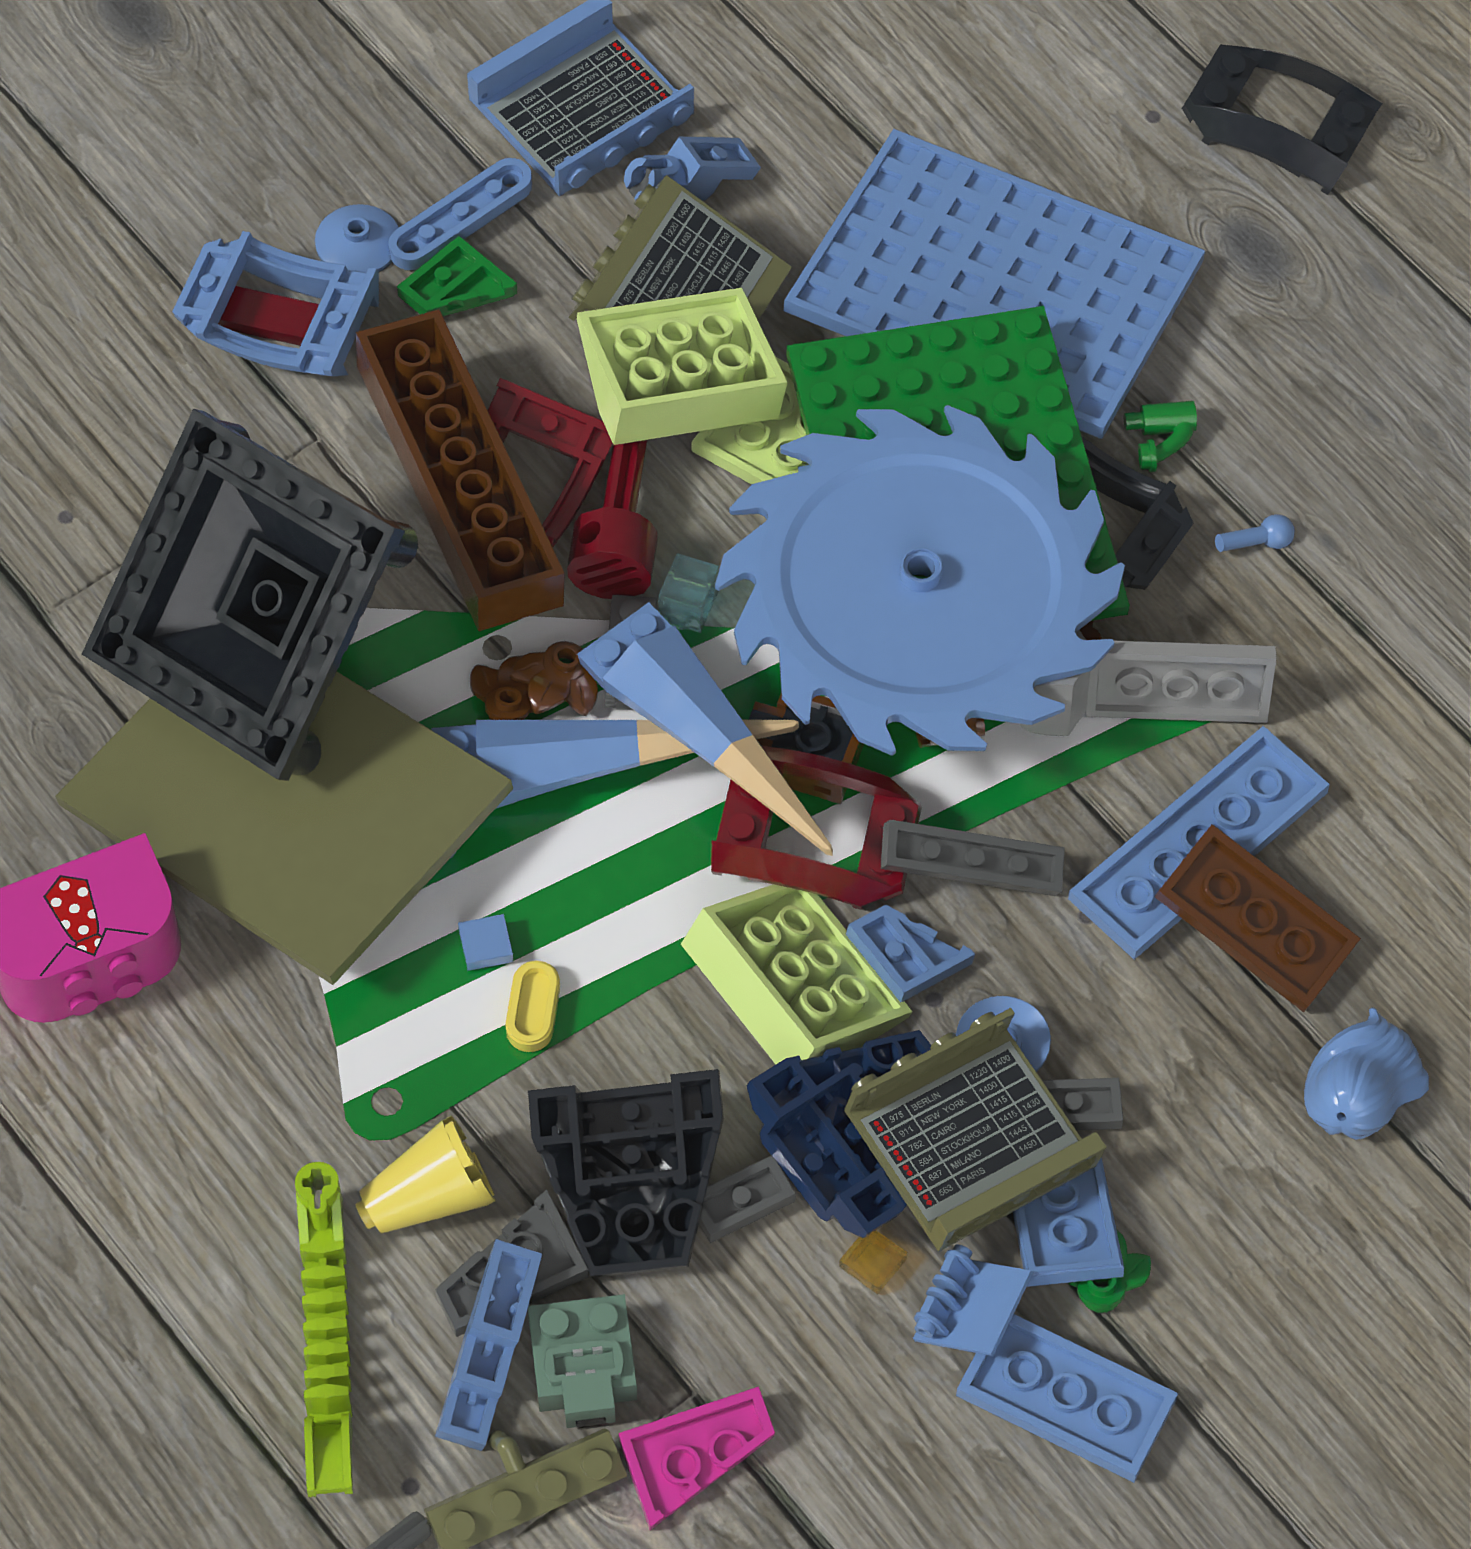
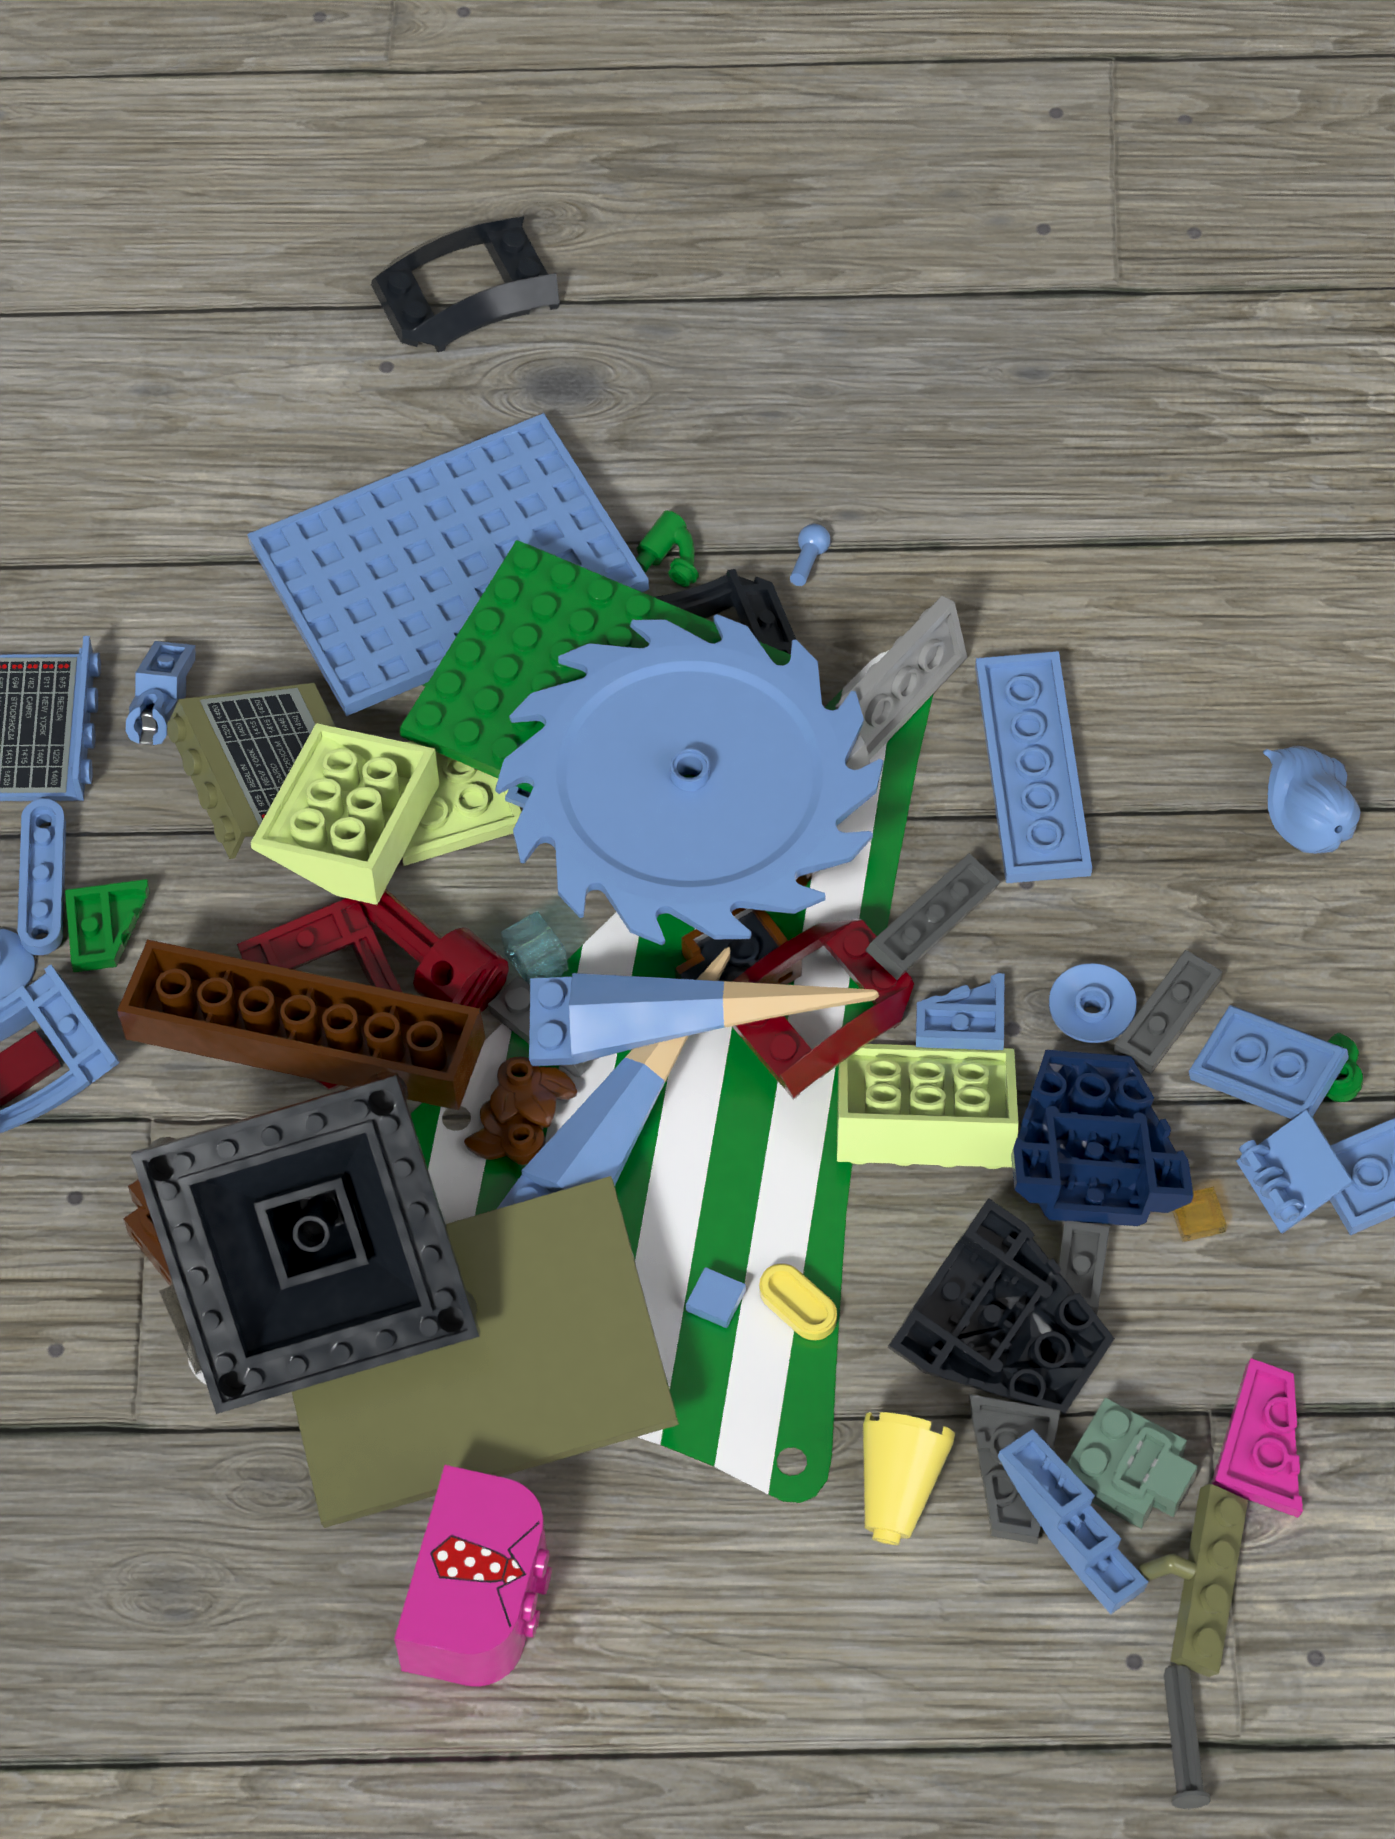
camera: 50 degrees left, 0 degrees up
(326, 1332) = (889, 1584): lime piece -> none
(969, 1131) = (1164, 1073): panel -> none
(1257, 918) = (1131, 771): reddish brown plate -> none

